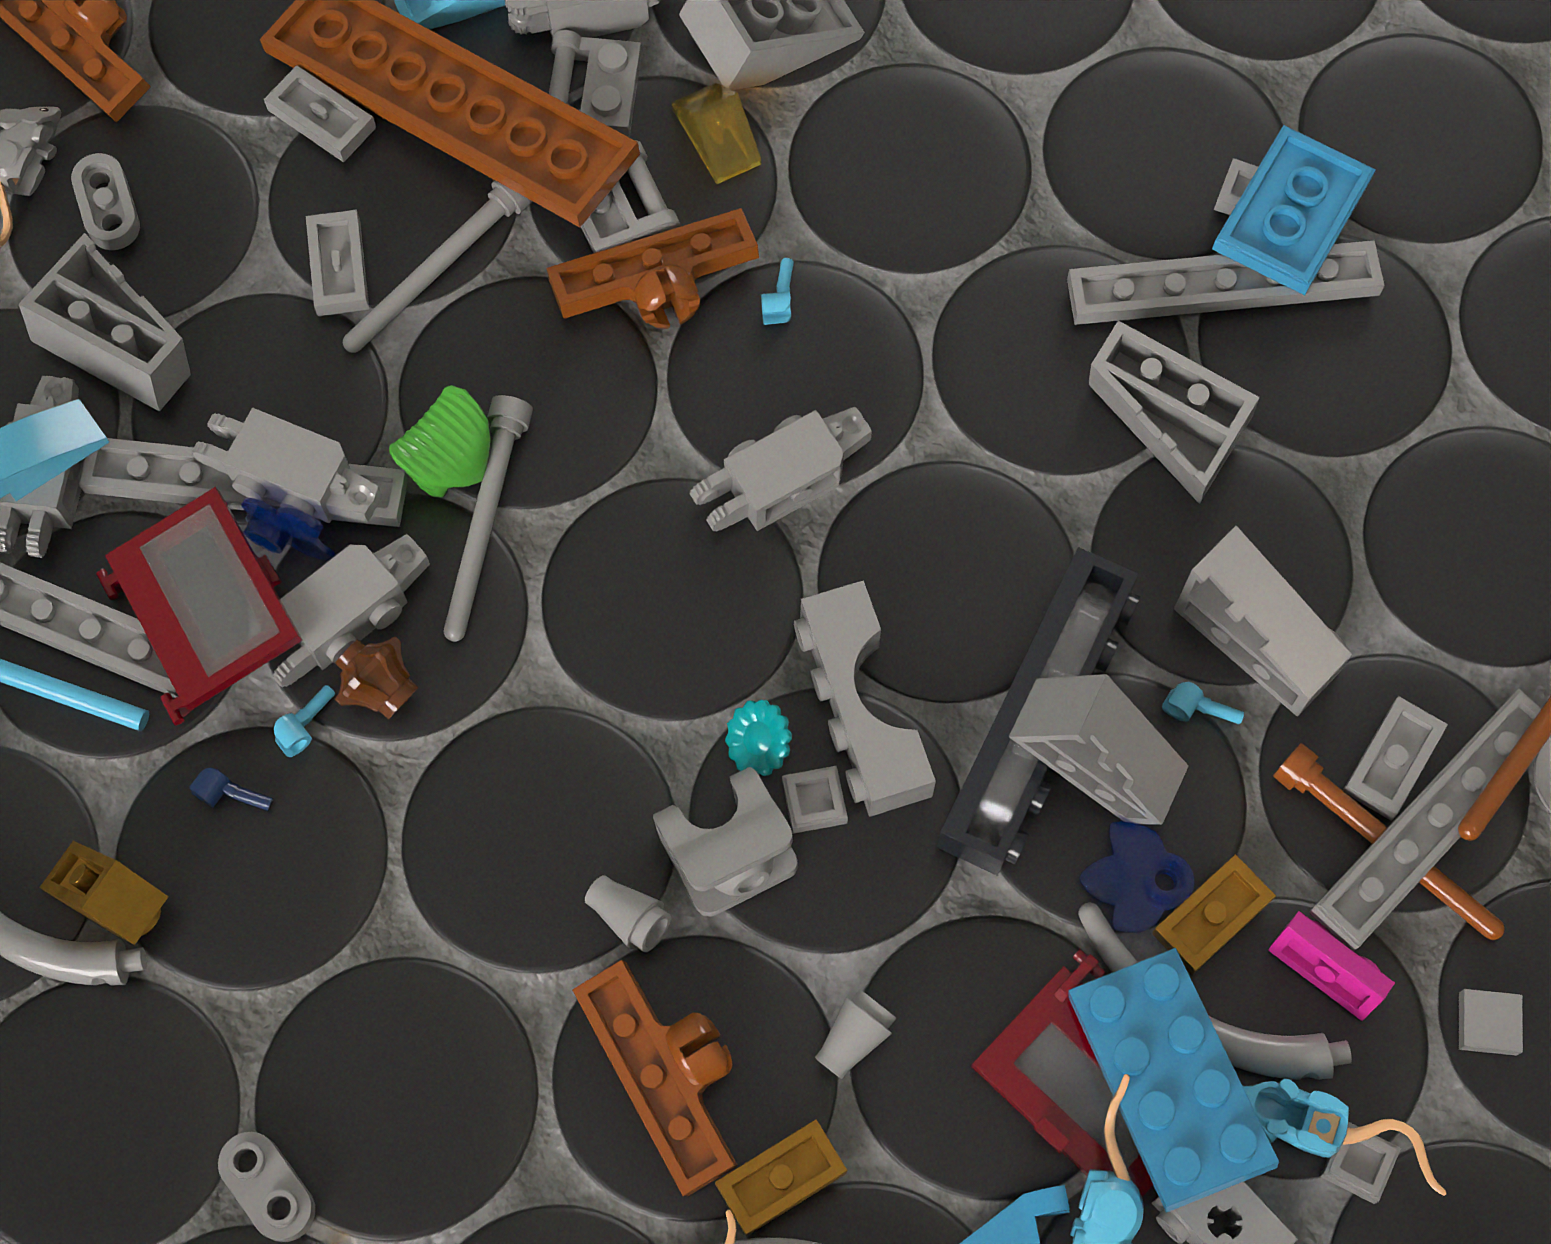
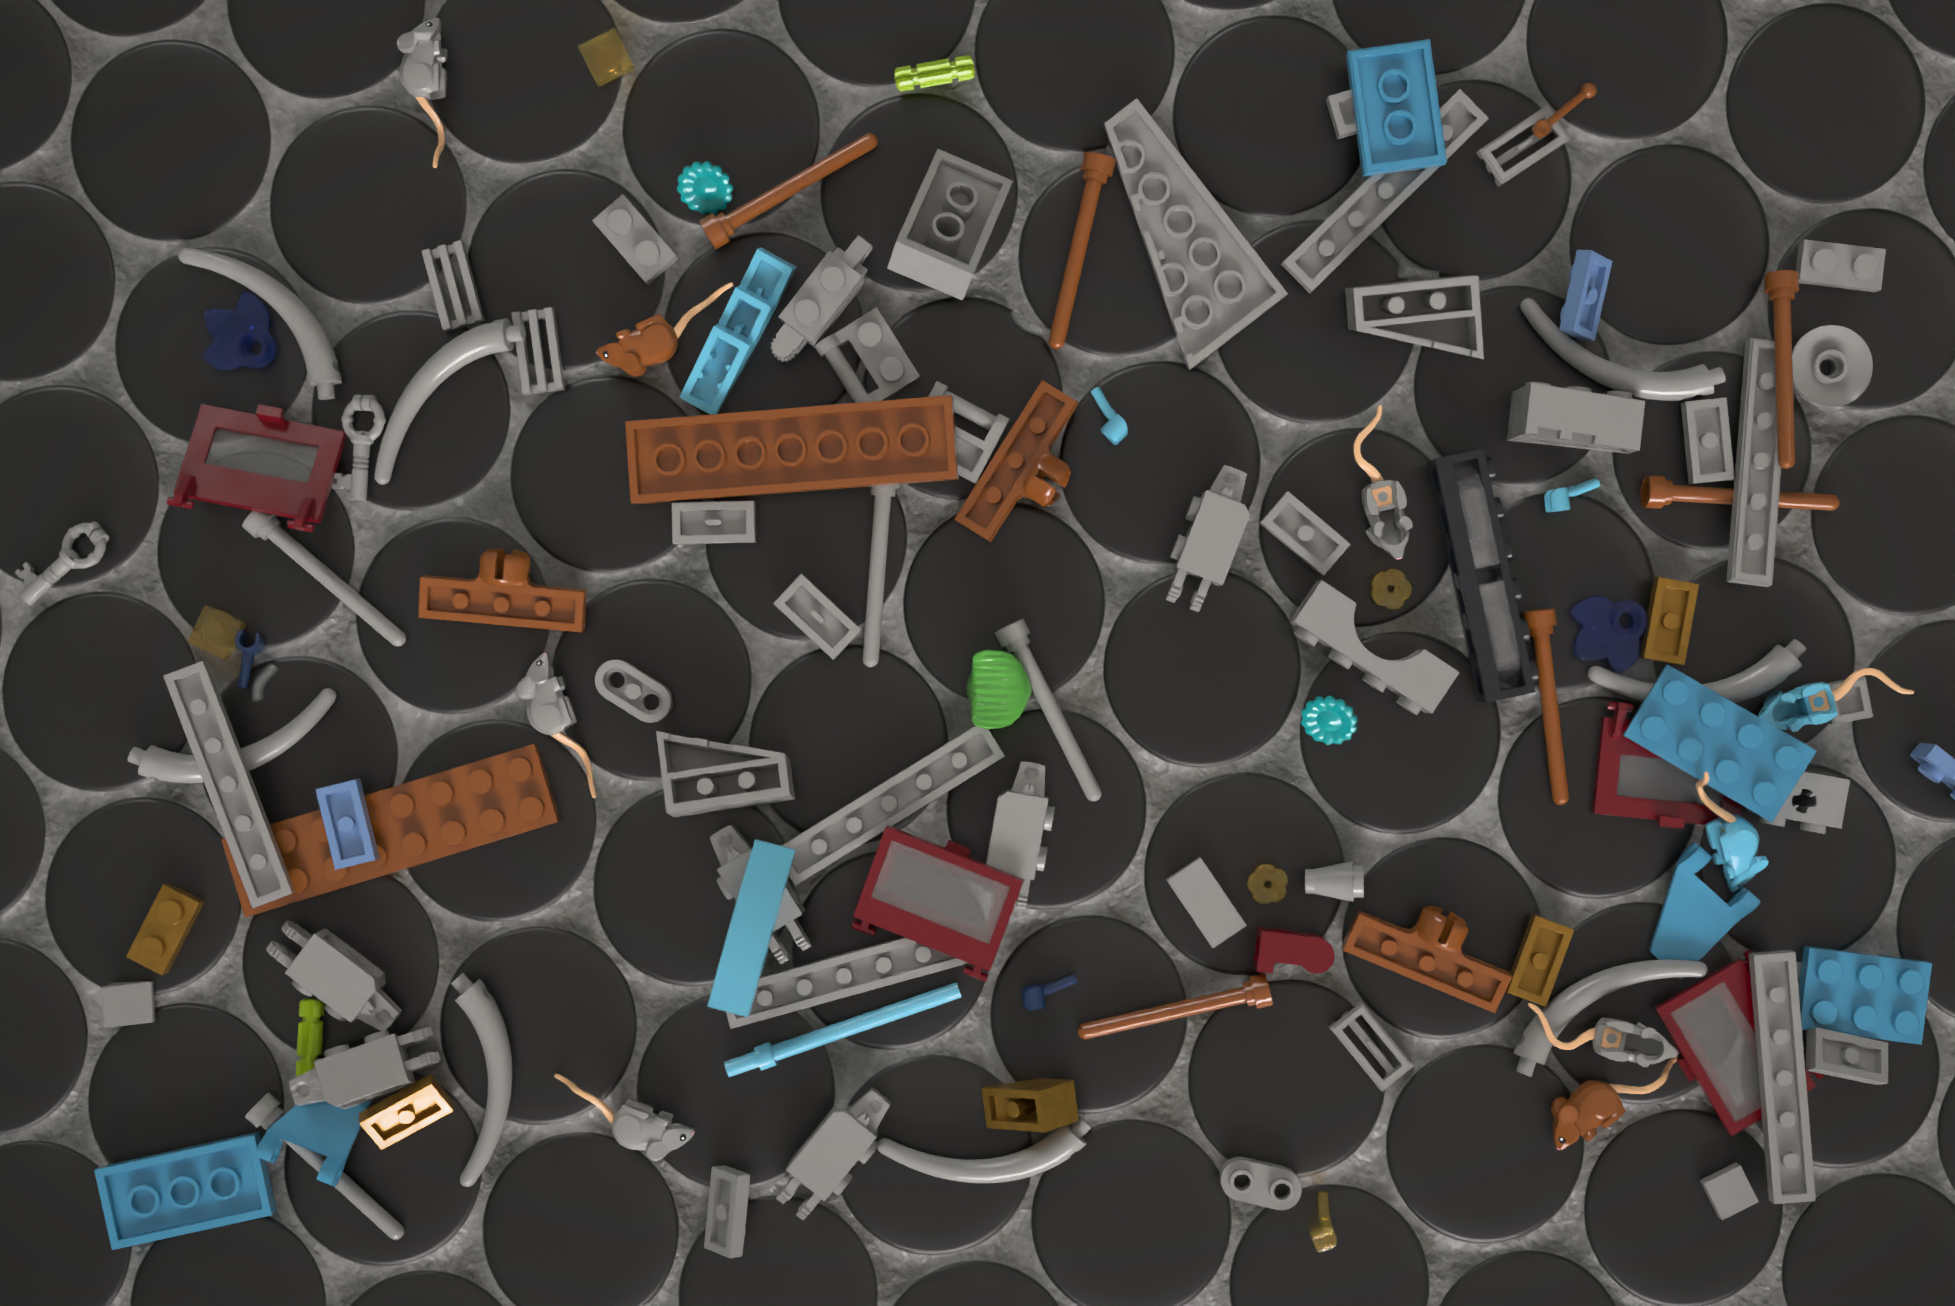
camera: 40 degrees left, 20 degrees up
(282, 527) = (935, 820): clear blue plate -> none
(288, 467) = (922, 779): light grey hinge -> none
(290, 729) = (1052, 929): medium azure hand -> none
(374, 677) = (1077, 861): reddish brown rock -> none
(440, 963) = (1253, 993): none -> dark orange piece
(472, 830) = (1206, 902): none -> light grey tile
(517, 1180) = (1348, 1018): none -> light grey tile
(520, 944) = (1291, 948): none -> dark red leg
(553, 874) = (1264, 873): none -> clear yellow plate
(718, 131) = (975, 330): clear yellow slope -> none
(735, 859) = (1377, 802): light grey piece -> none
(772, 160) = (1037, 328): none -> clear leg
(814, 799) = (1387, 729): light grey tile -> none
(855, 1033) = (1518, 848): light grey cone -> none
(885, 536) = (1304, 533): none -> light grey plate
(929, 671) = (1382, 581): none -> clear yellow plate
(953, 72) = (1096, 170): none -> dark orange piece
(990, 208) = (1199, 256): none -> light grey wing
(990, 560) = (1383, 502): none -> light grey animal
(1065, 812) = (1540, 627): none -> dark orange piece
(1101, 745) = (1542, 580): light grey wedge -> none
(1331, 966) = (1773, 600): dark pink plate -> none
(1364, 519) = (1585, 295): none -> medium blue plate
(1369, 655) = (1644, 384): none -> light grey animal
(1403, 352) = (1493, 165): none -> light grey tile
(1435, 330) = (1543, 127): none -> dark orange hinge
(1490, 1022) = (1866, 561): light grey tile -> none

